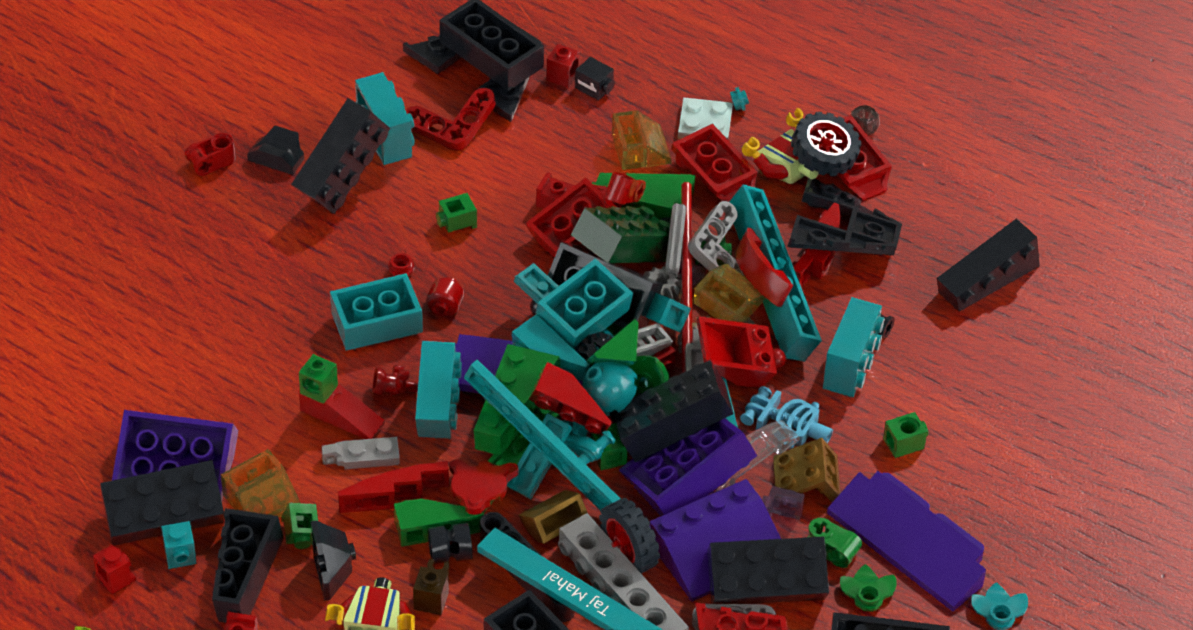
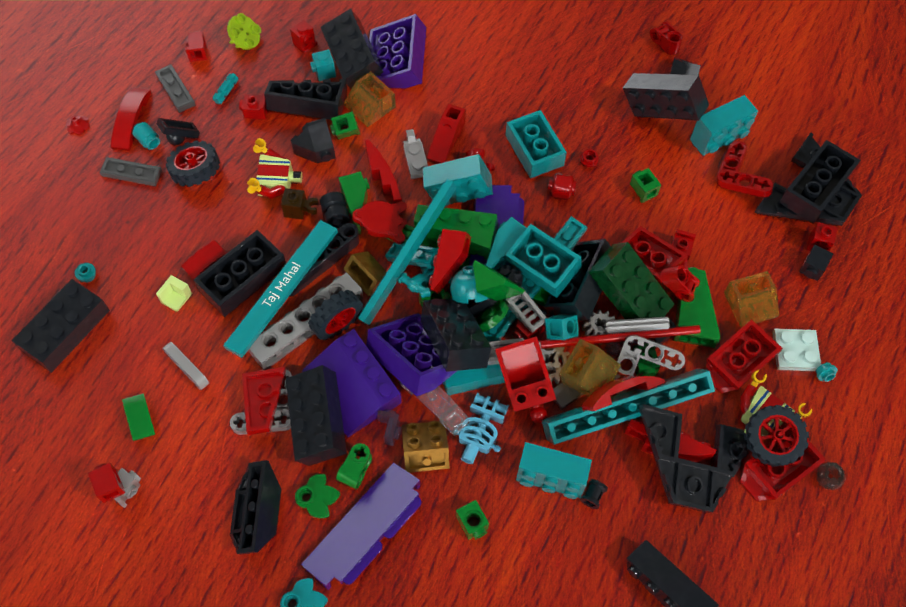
camera: 85 degrees right, 15 degrees up
(318, 378) = (449, 107): green brick -> none

